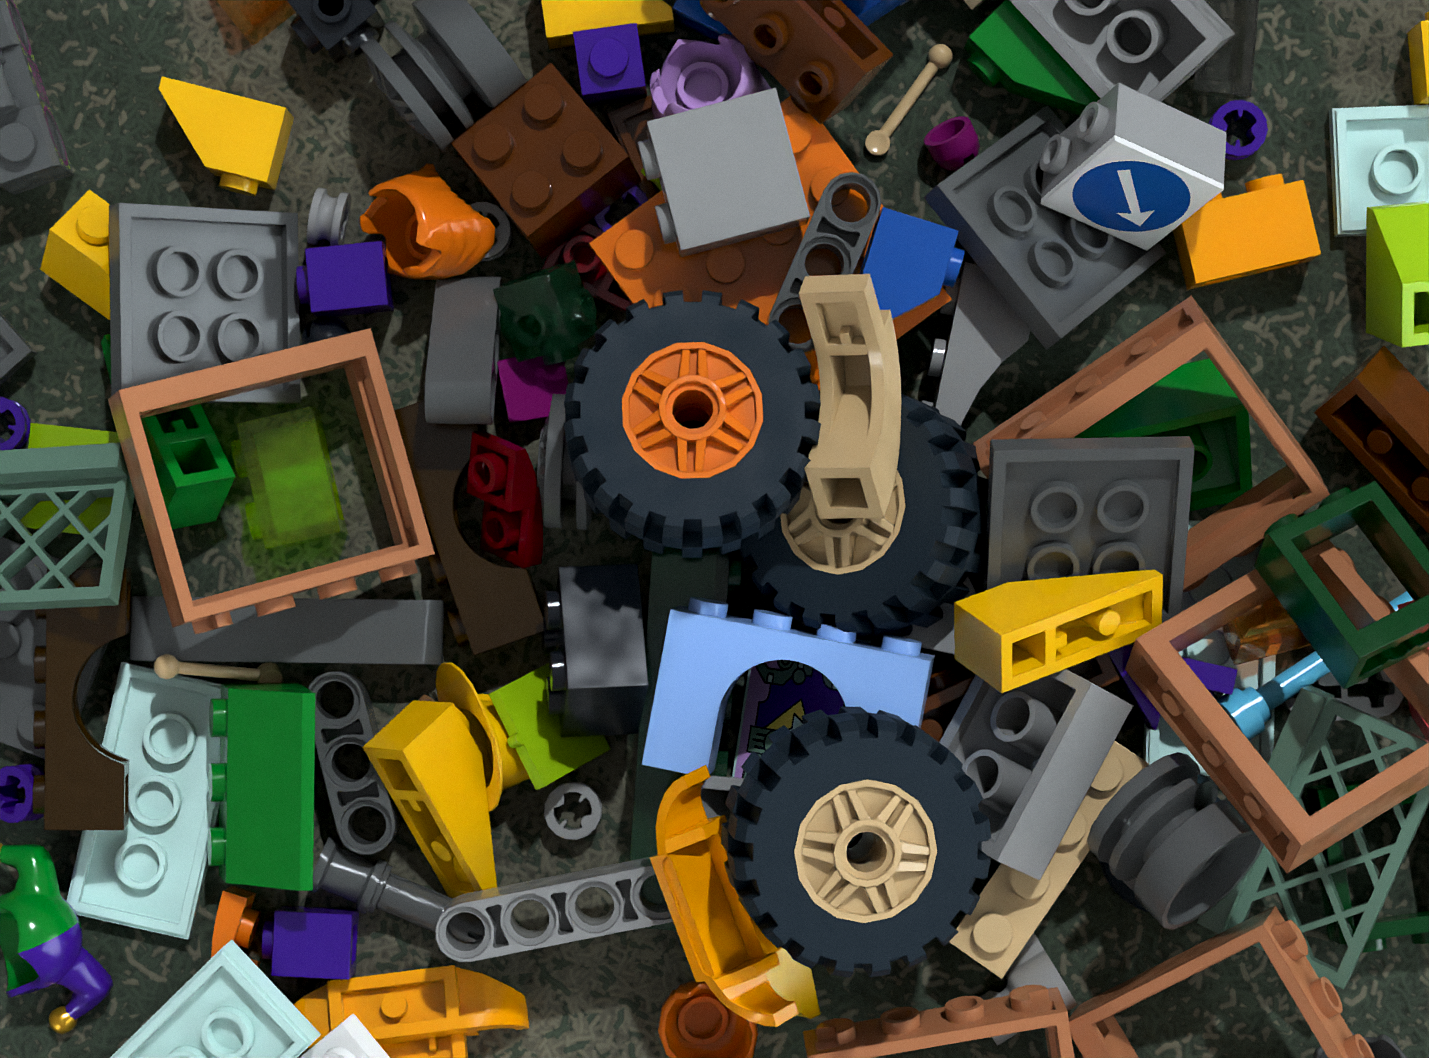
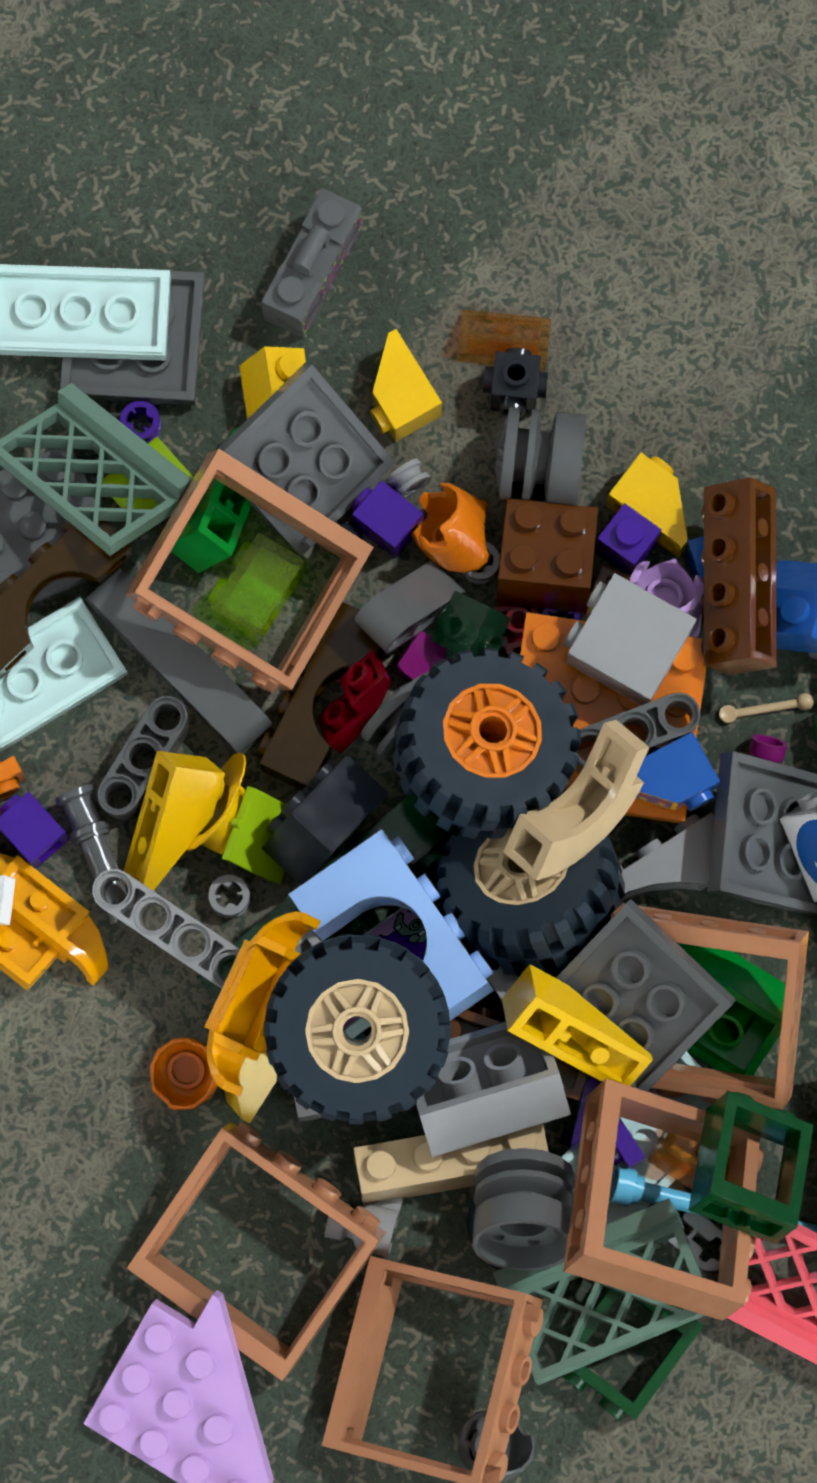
camera: 45 degrees right, 10 degrees down
(168, 666) = (145, 675): tan hinge -> none
(263, 785) = (88, 721): green slope -> none

